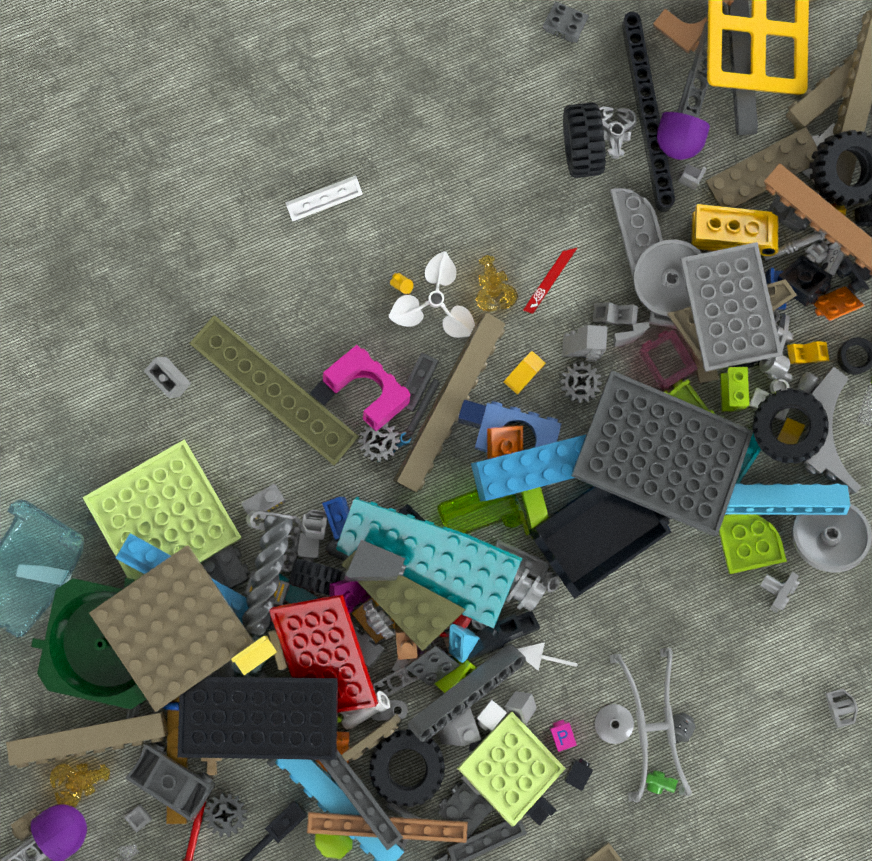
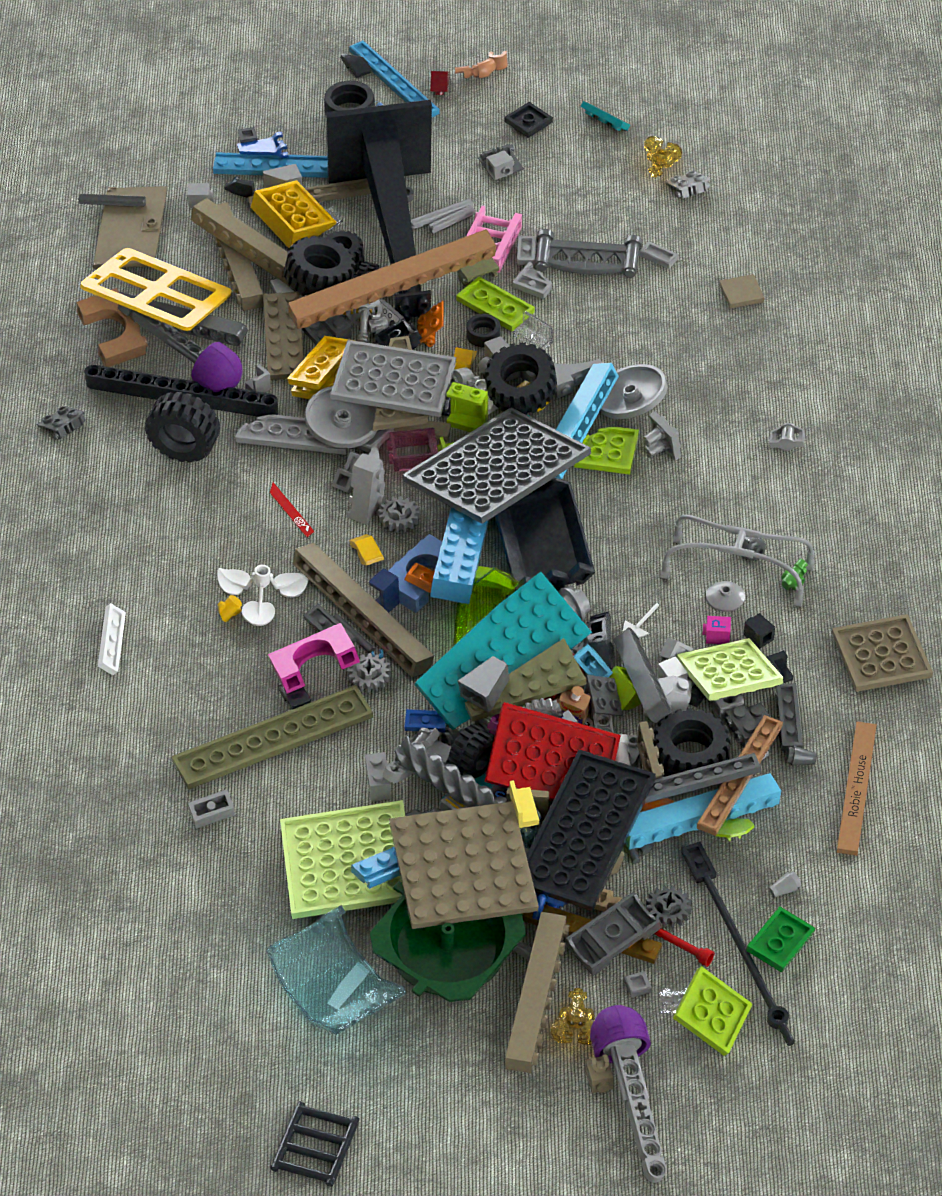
camera: 65 degrees left, 35 degrees down
(493, 286) = (274, 544): clear yellow animal -> none

